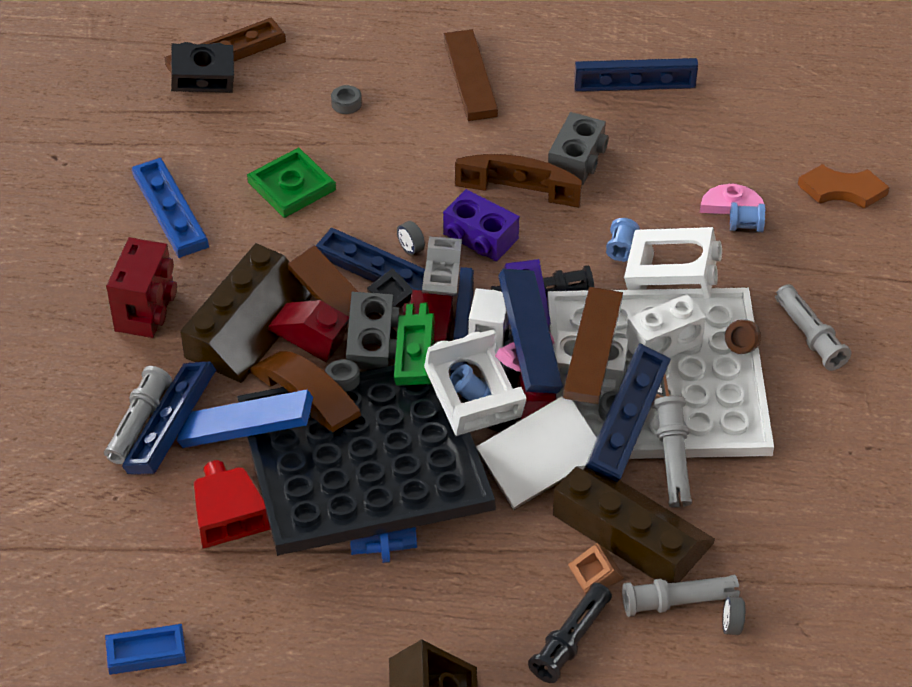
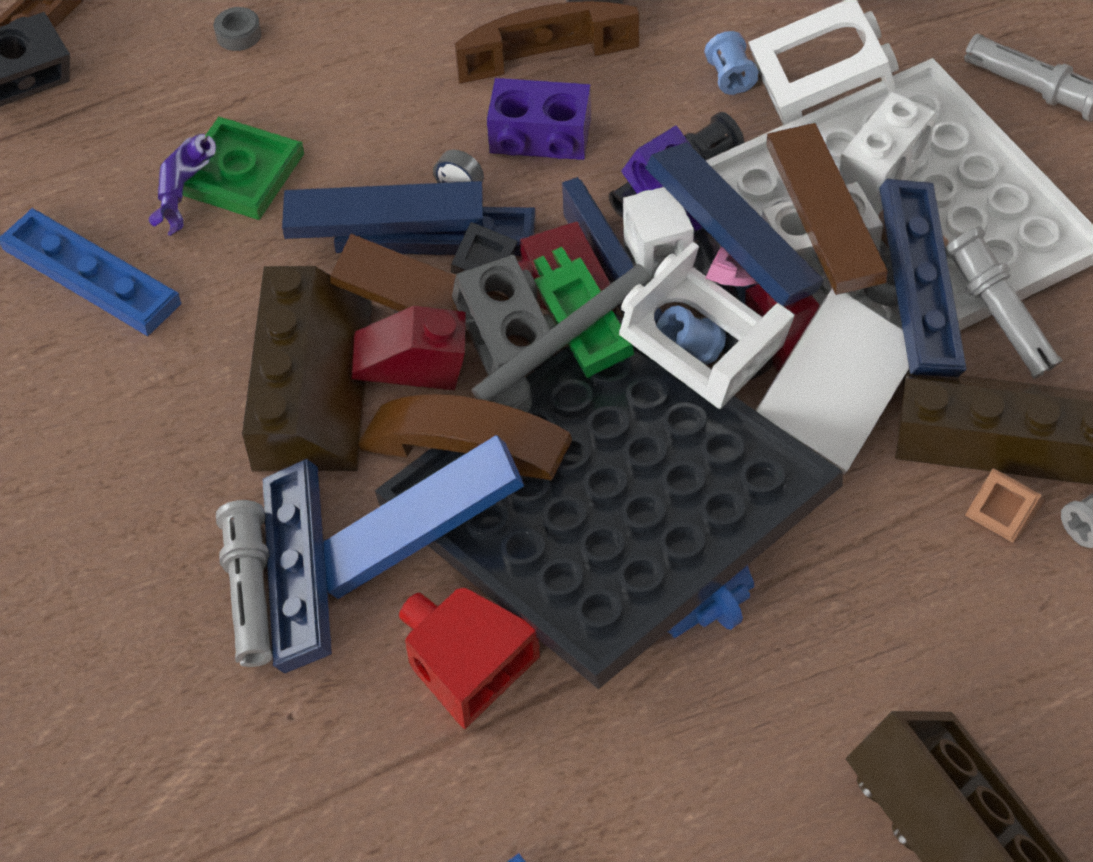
camera: 25 degrees left, 5 degrees up
(141, 287) = (141, 397): dark red piece -> none
(248, 169) = (174, 172): none -> dark purple arm
(351, 240) = (382, 209): none -> dark blue tile
(385, 353) = (560, 335): none -> dark grey bar
(442, 266) = (535, 200): light grey slope -> none
(563, 642) = (1042, 624): black pin -> none
(742, 336) = (982, 120): reddish brown tile -> none

